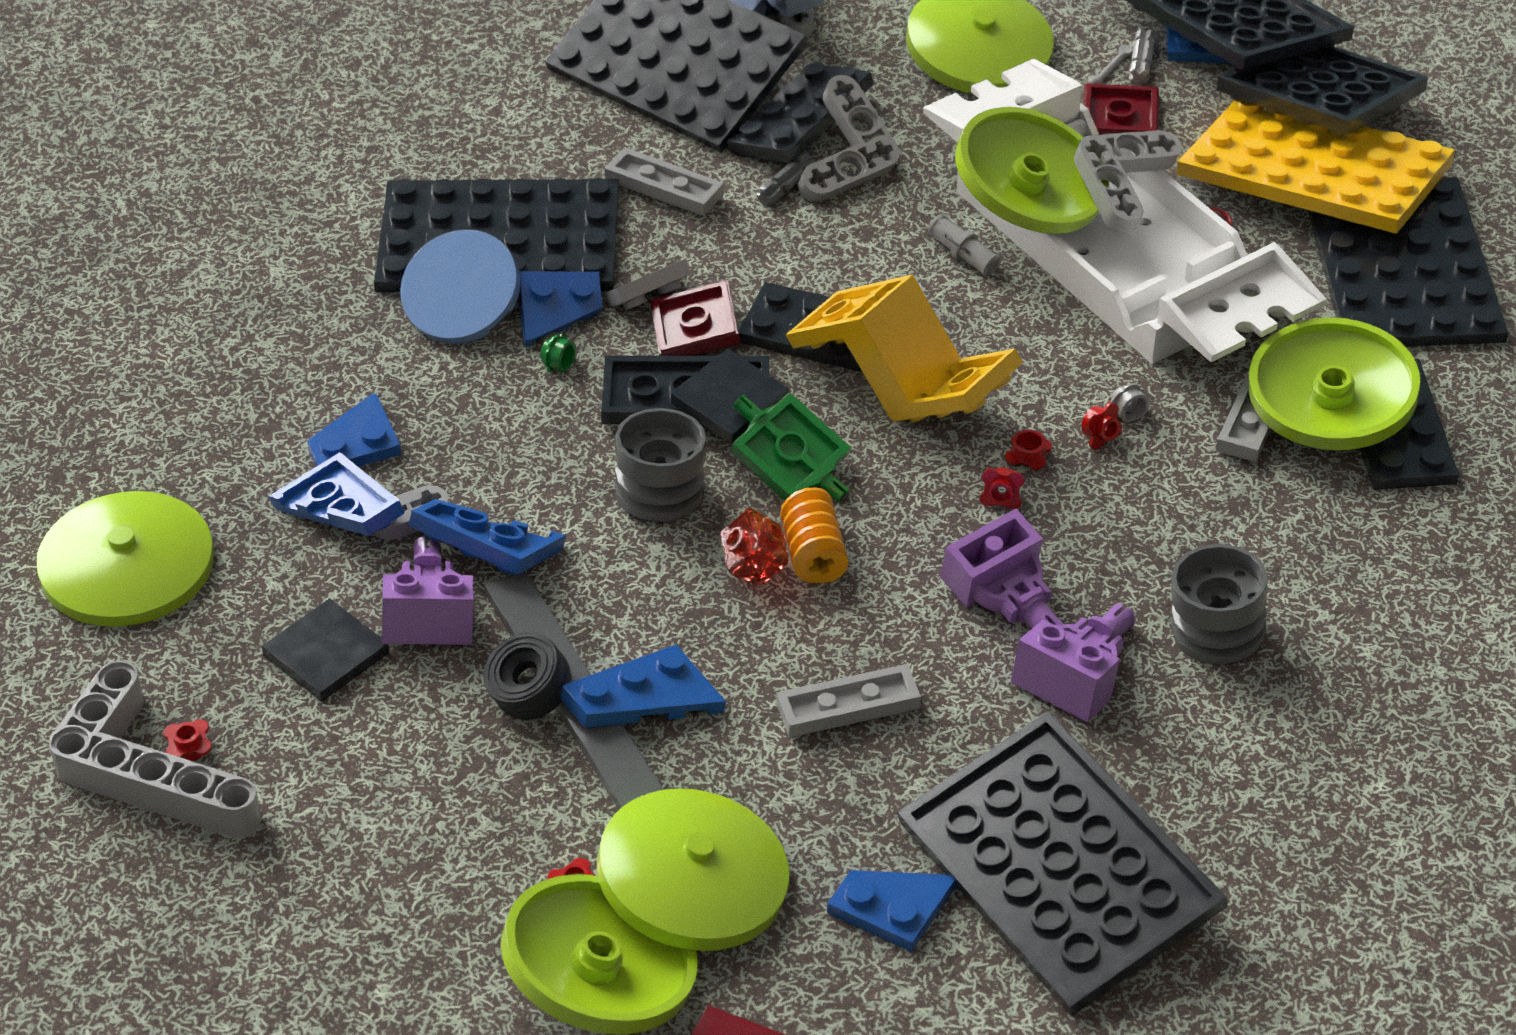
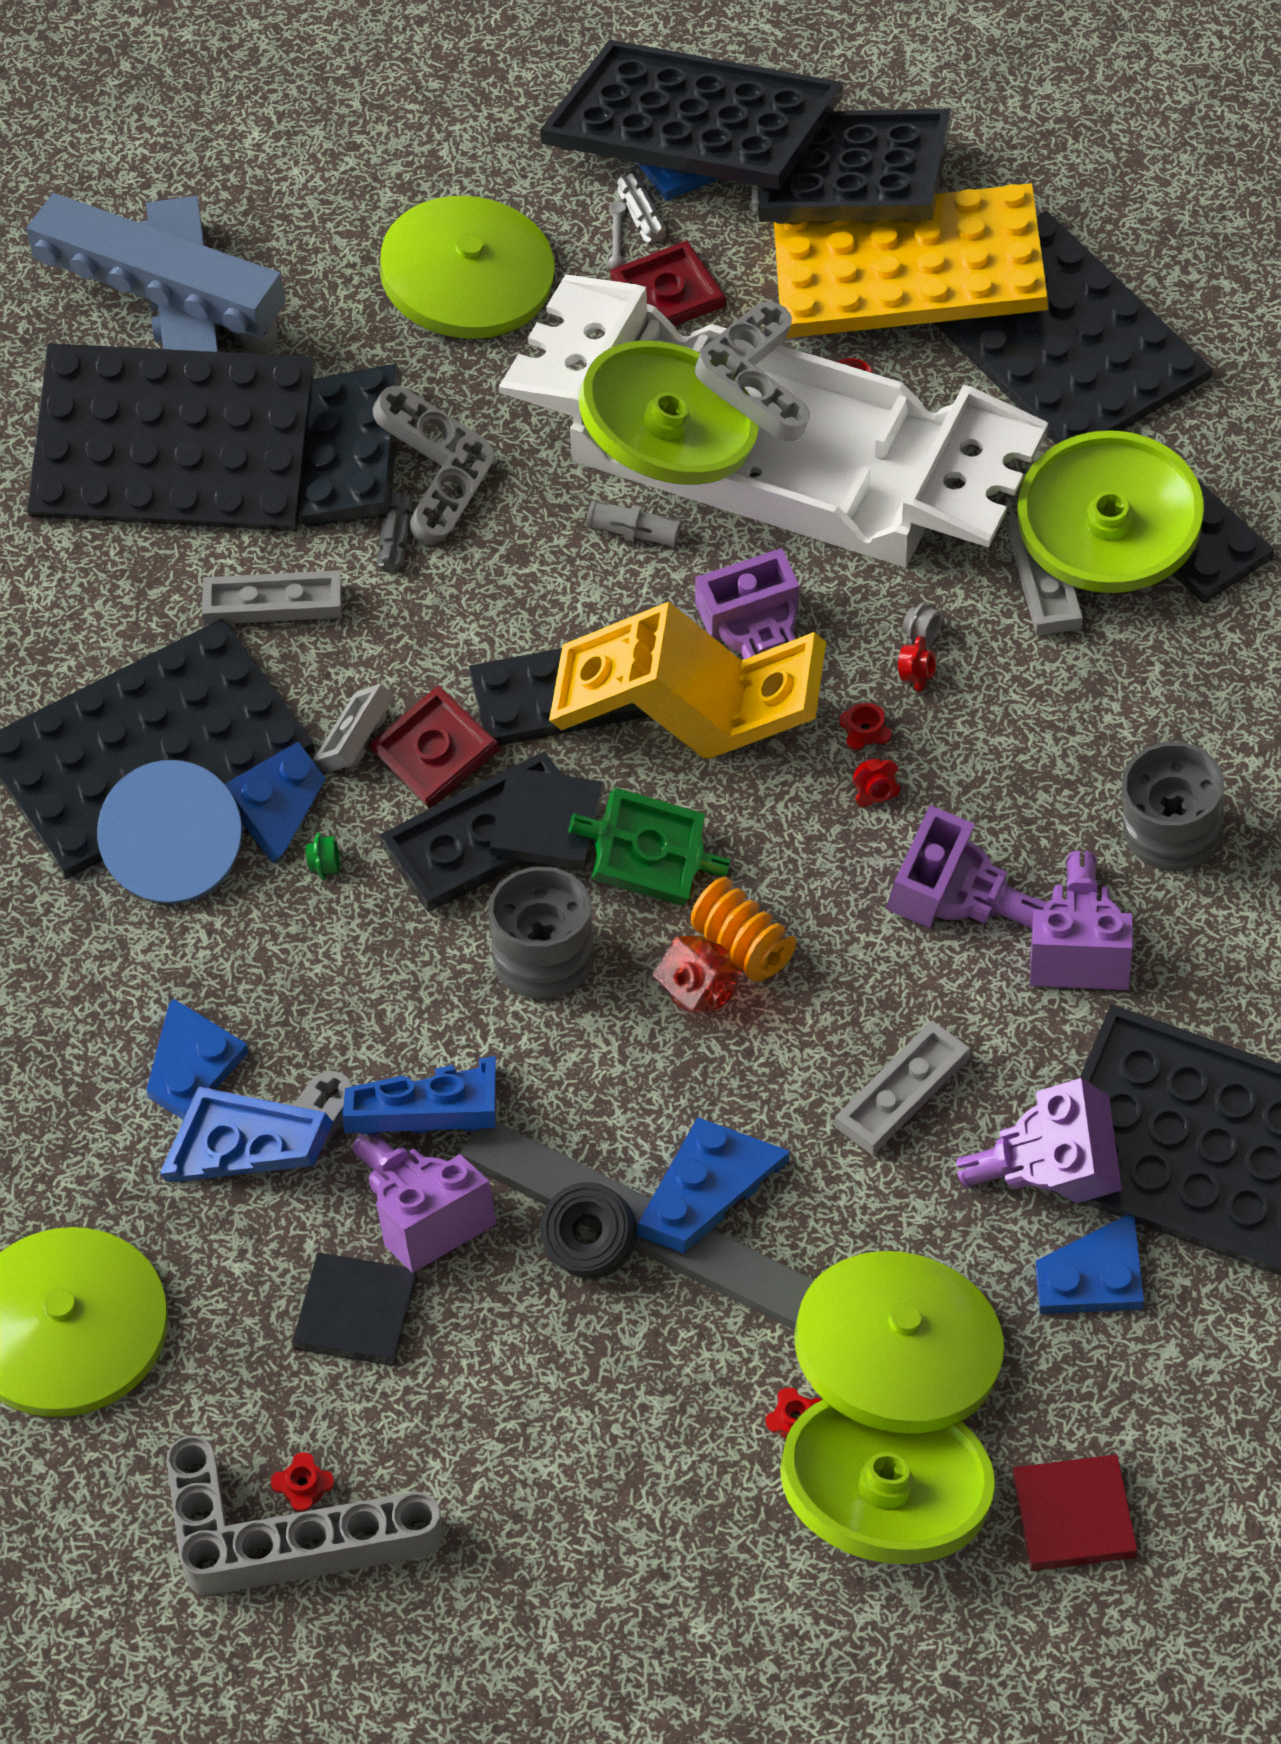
camera: 30 degrees left, 10 degrees up
(924, 790) = (1055, 1146): none -> medium lavender brick
(1003, 321) = (750, 603): none -> medium lavender brick

